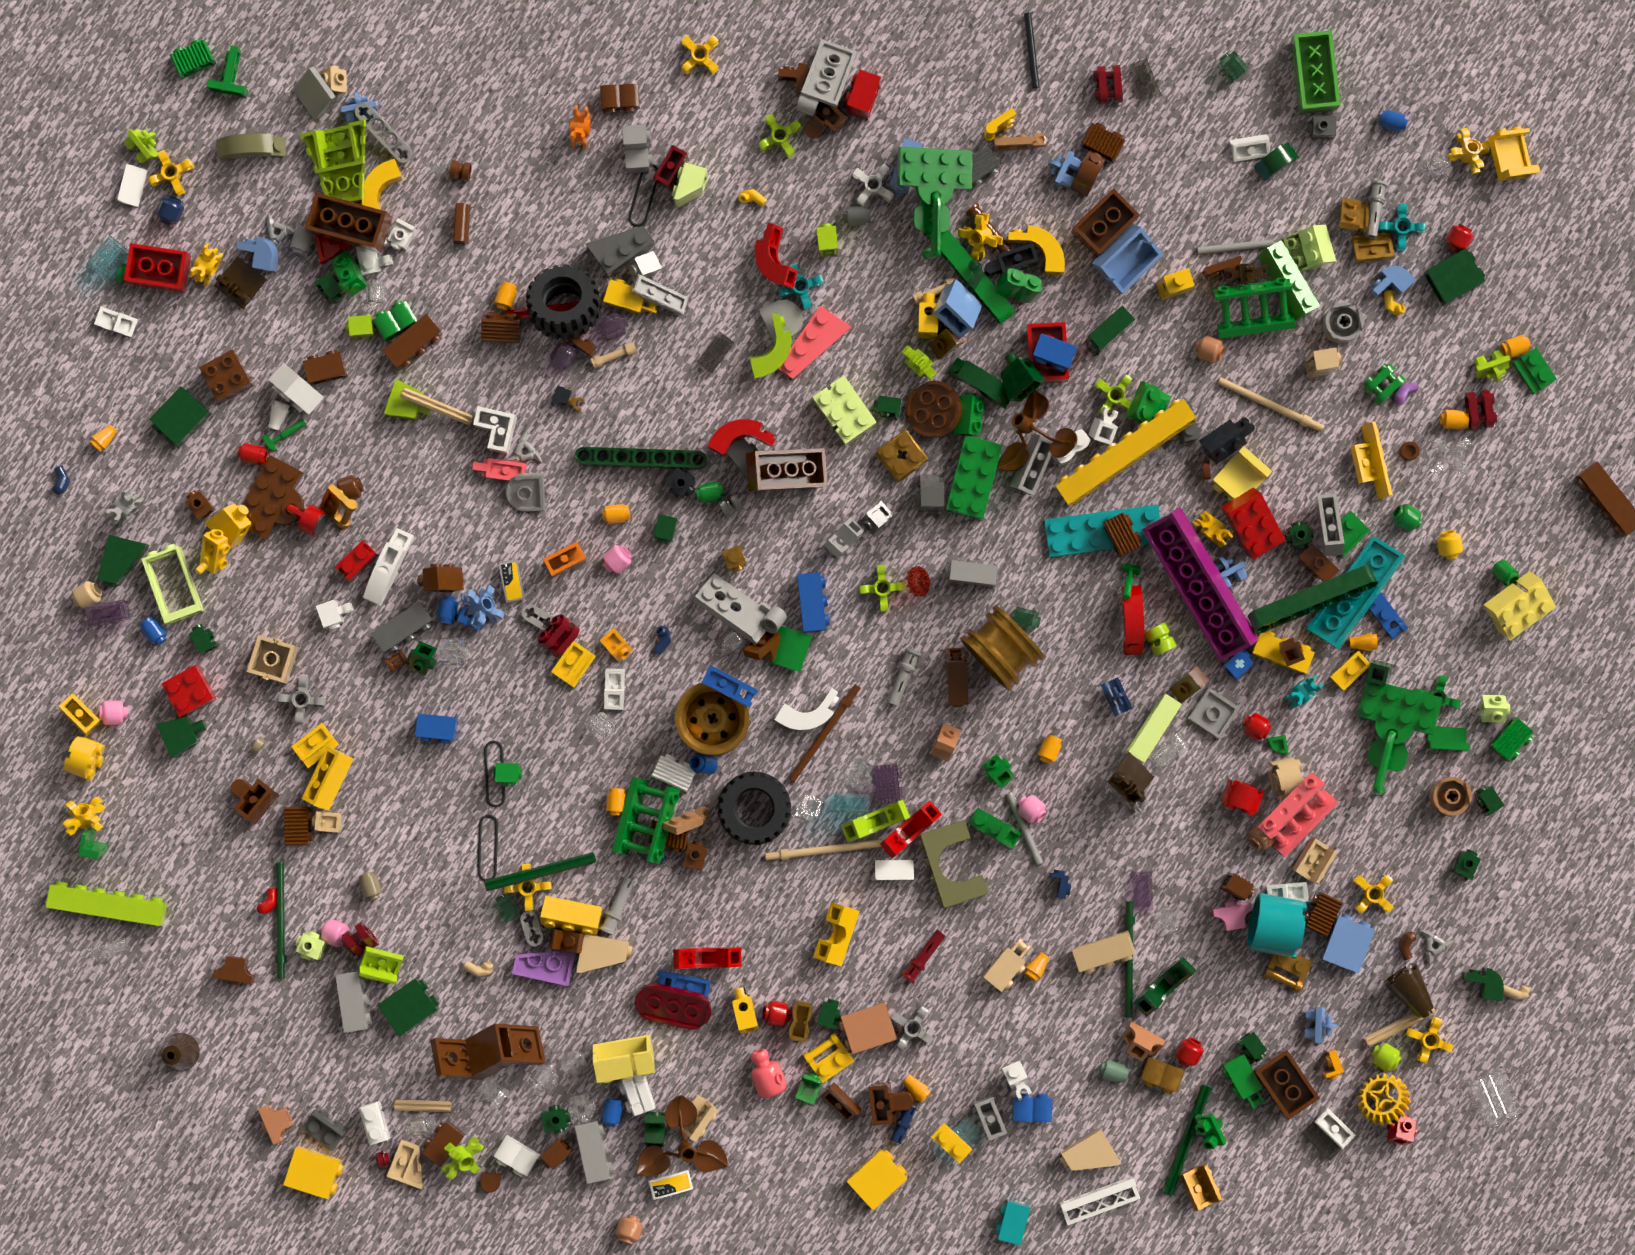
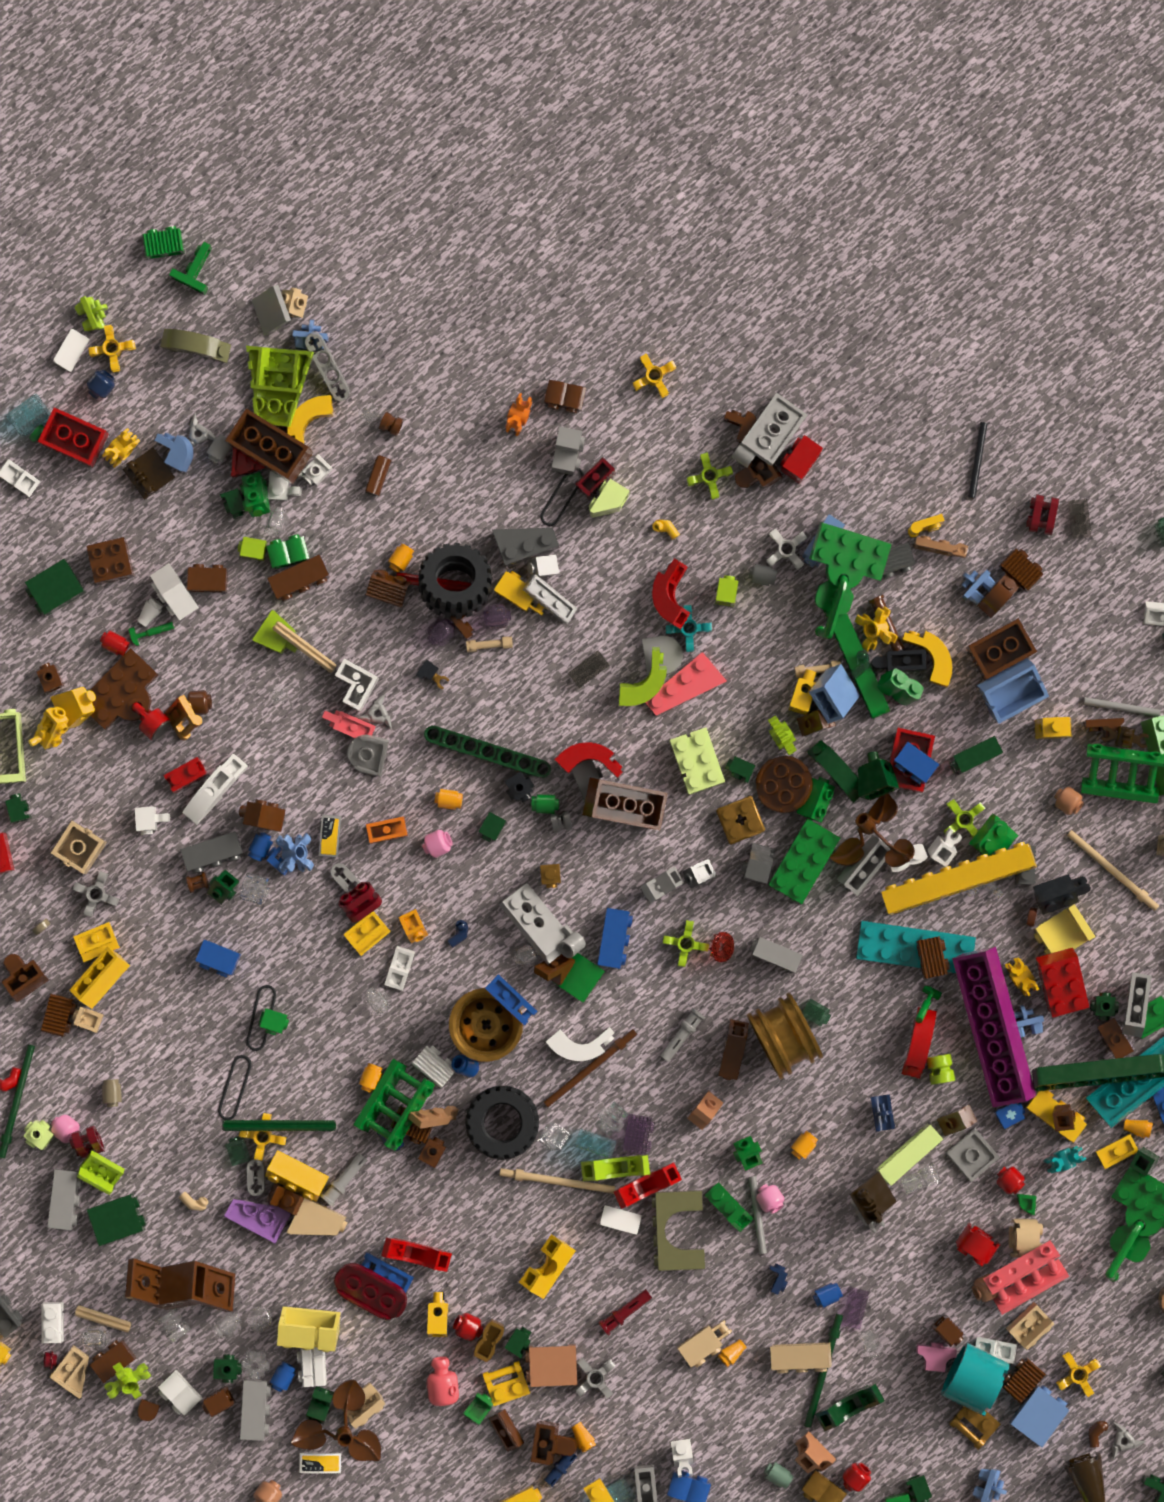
camera: 20 degrees right, 0 degrees up
(1112, 885) = (827, 1295): none -> blue brick

